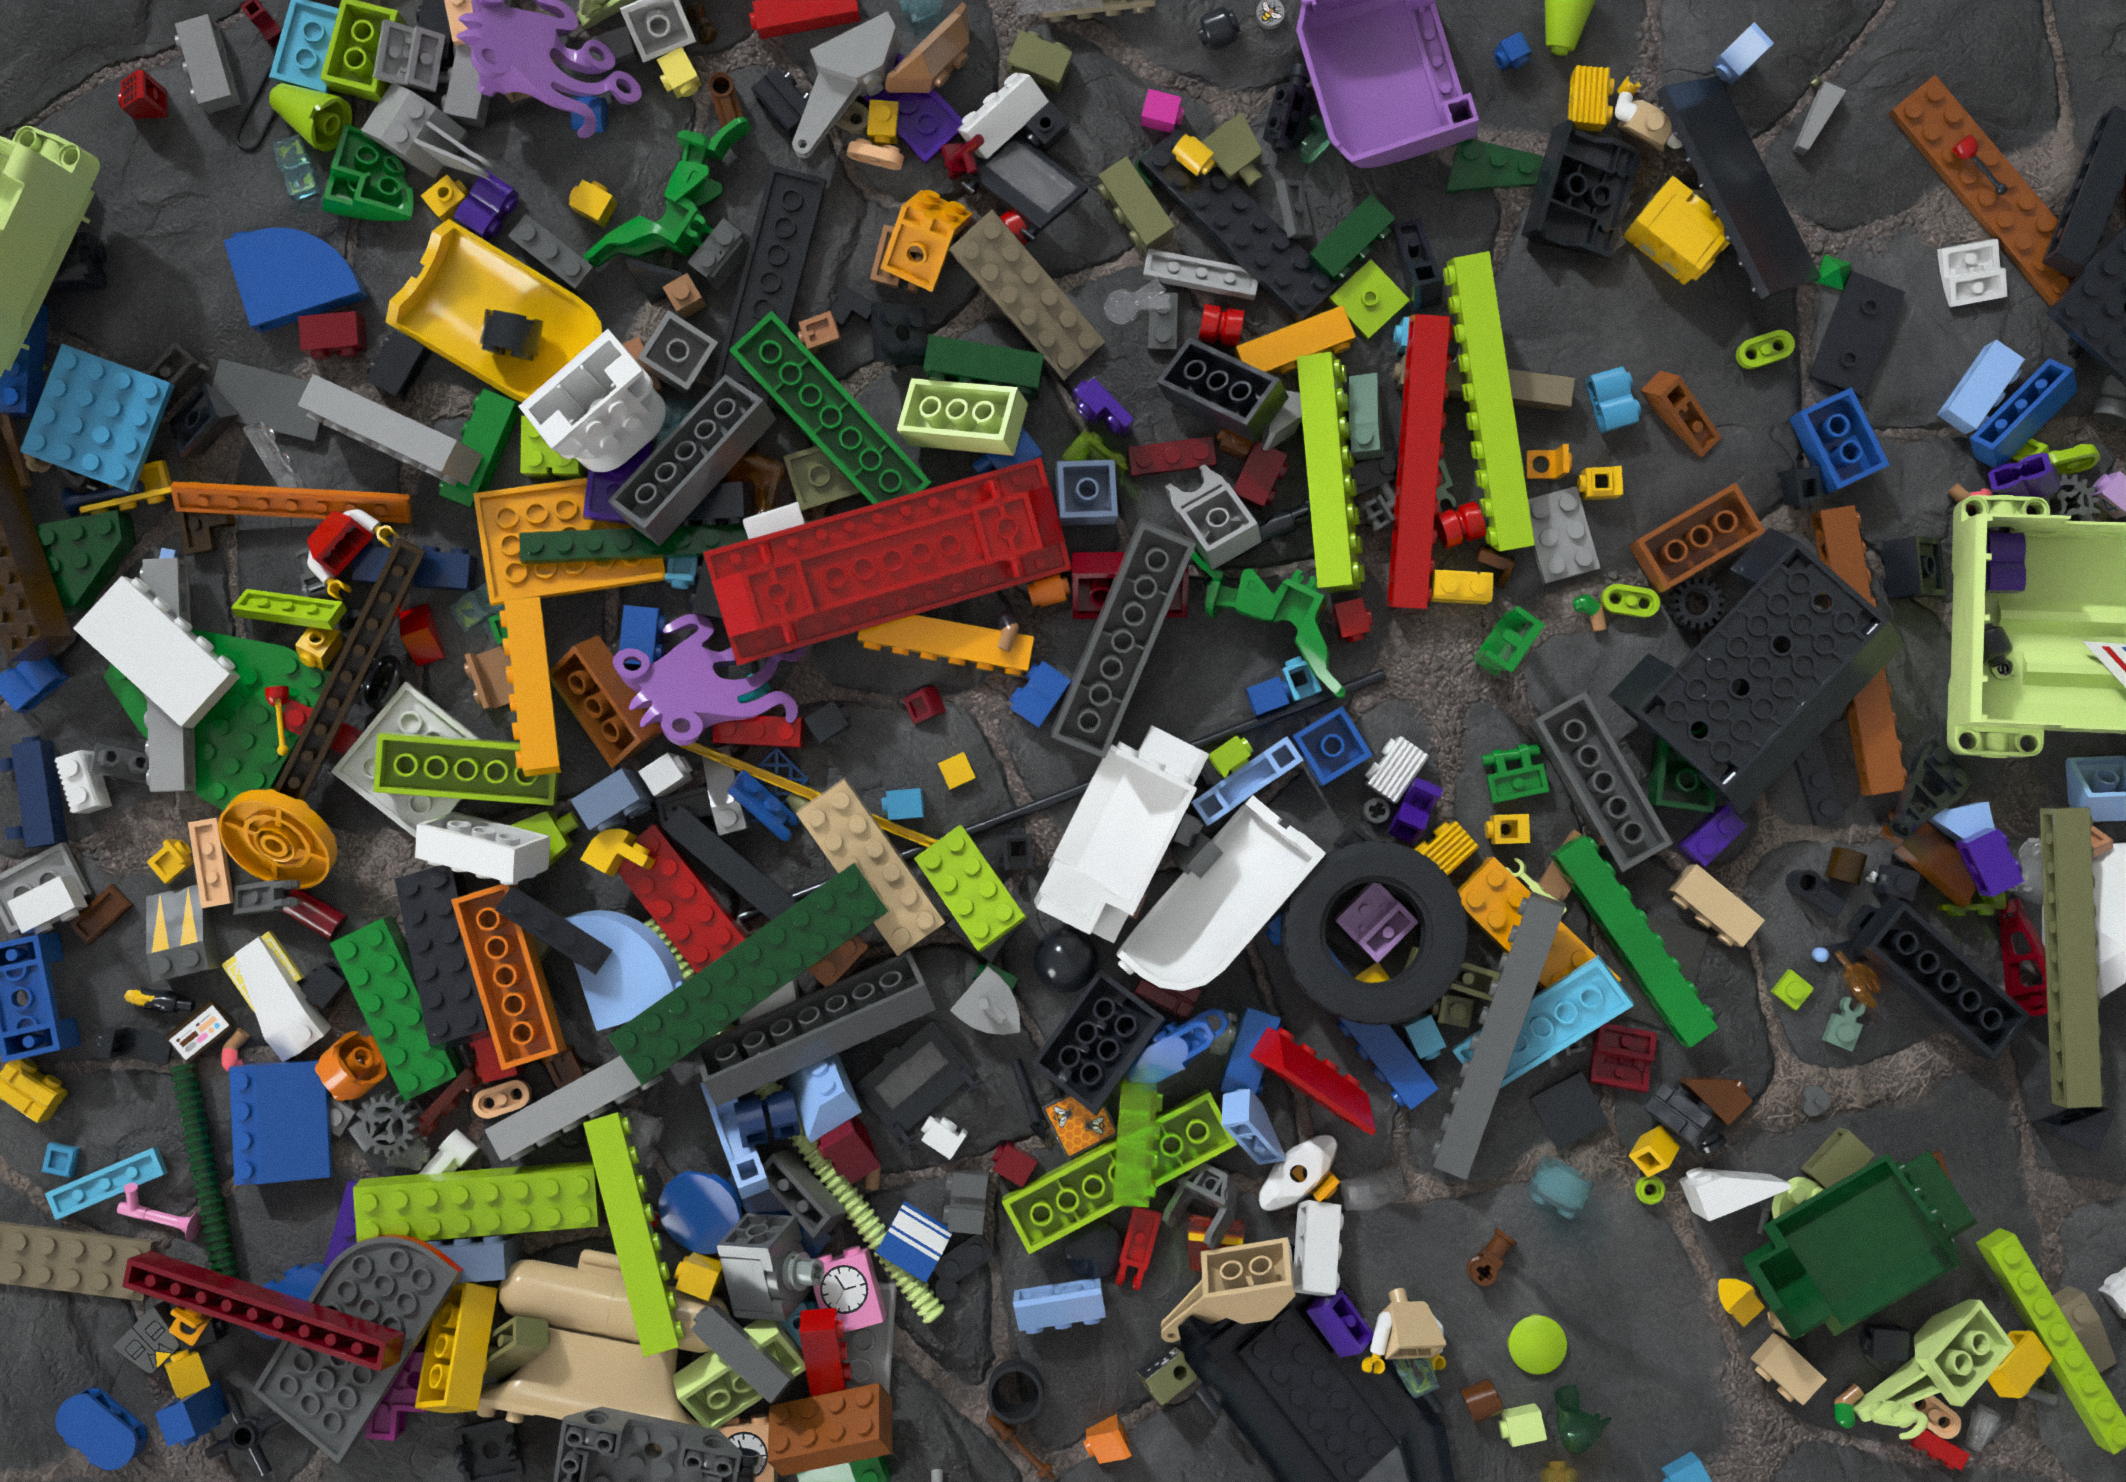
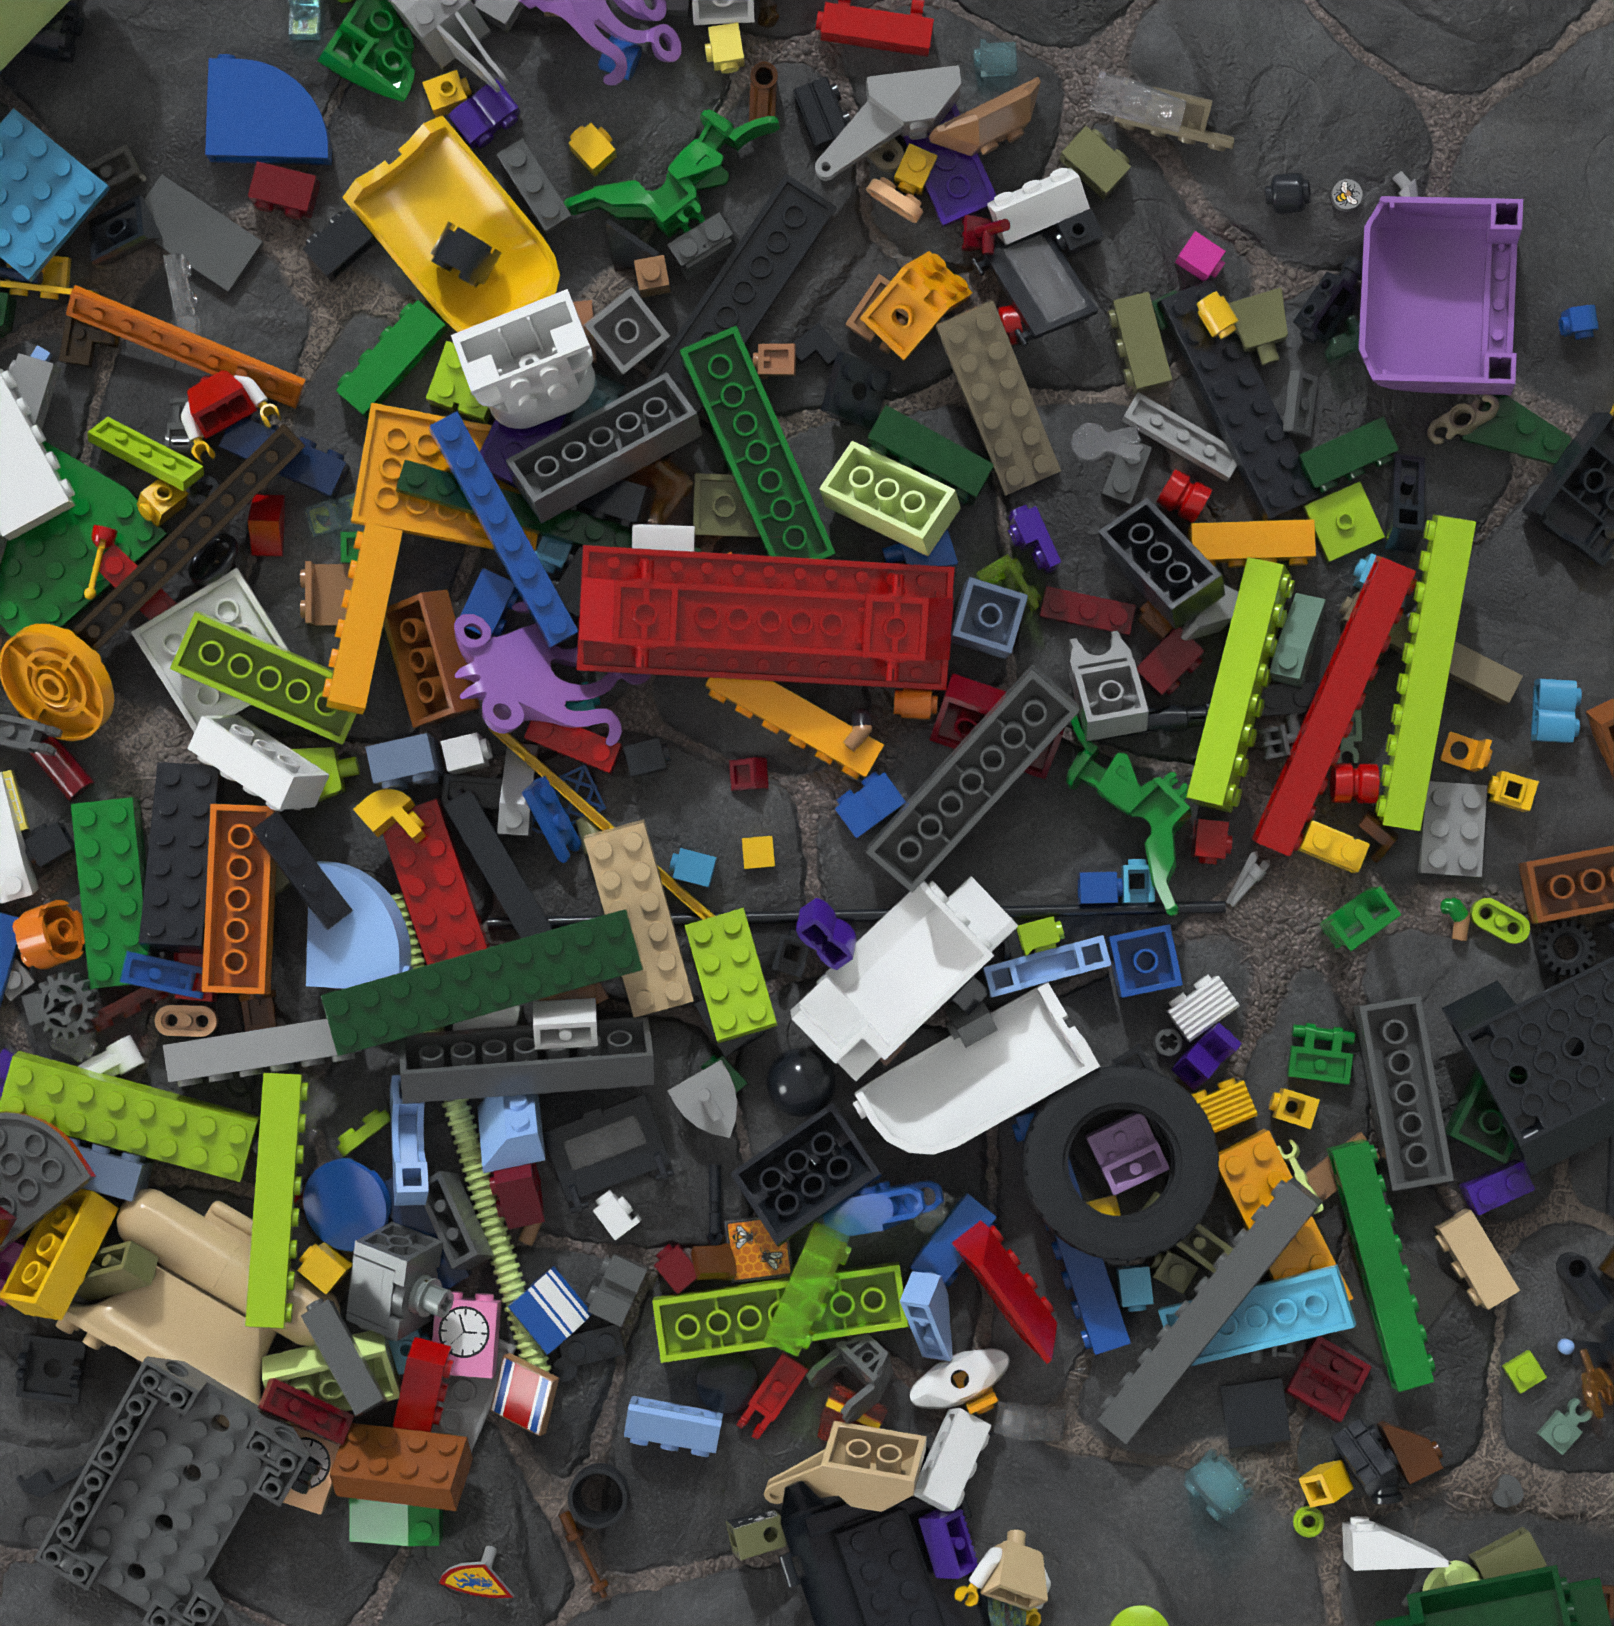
camera: 15 degrees right, 0 degrees up
(389, 432) = (309, 312): light grey brick -> none
(461, 1067) = (160, 974): none -> blue hinge
(627, 563) = (503, 529): none -> blue brick
(685, 1152) = (373, 1123): none -> lime plate
(726, 1412) = (305, 1411): none -> dark red plate
(782, 1115) = (431, 1133): dark blue piece -> none
(837, 983) = (565, 1023): none -> white brick
(918, 1324) = (524, 1394): none -> tile
(1041, 821) = (826, 933): none -> dark purple brick
(1044, 1147) = (714, 1262): none -> reddish brown tile
(1108, 1441) = (673, 1578): orange slope -> none
(1172, 1000) = (894, 1159): dark red brick -> none
(1395, 641) = (1248, 877): none -> light grey piece
(1454, 166) = (1477, 419): none -> dark tan piece
(1490, 1258) = (1124, 1531): reddish brown connector -> none

